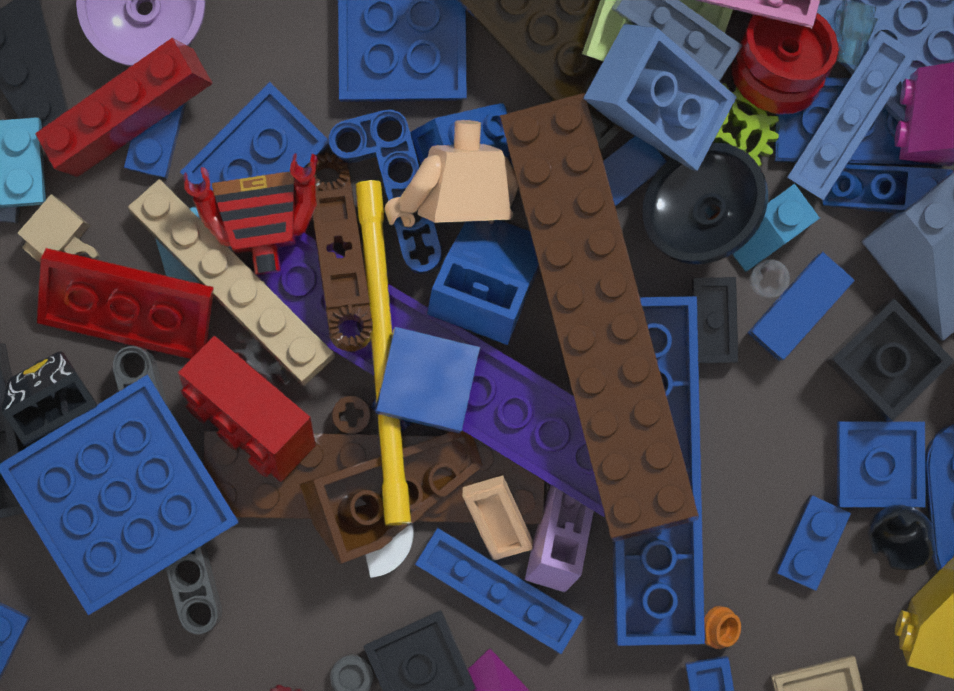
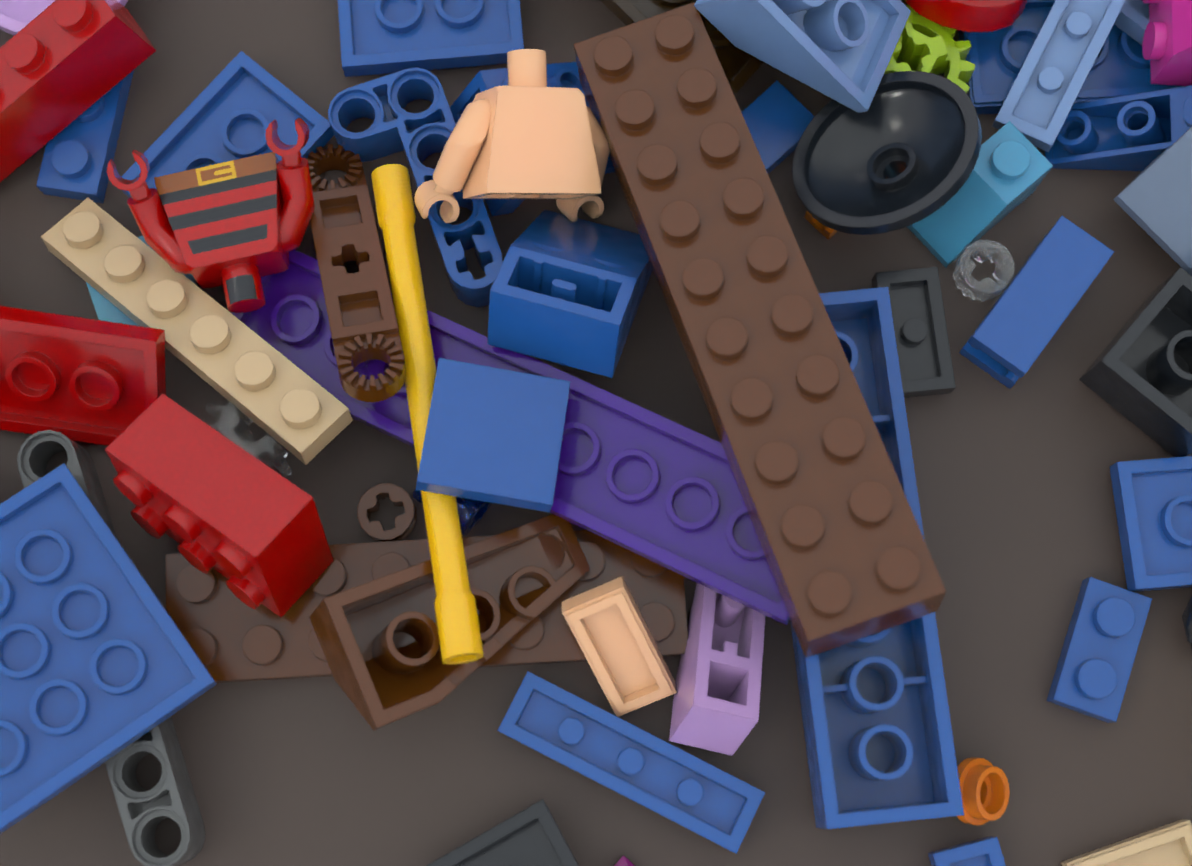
camera: 10 degrees left, 10 degrees down
(391, 555) = (458, 714): white brick -> none

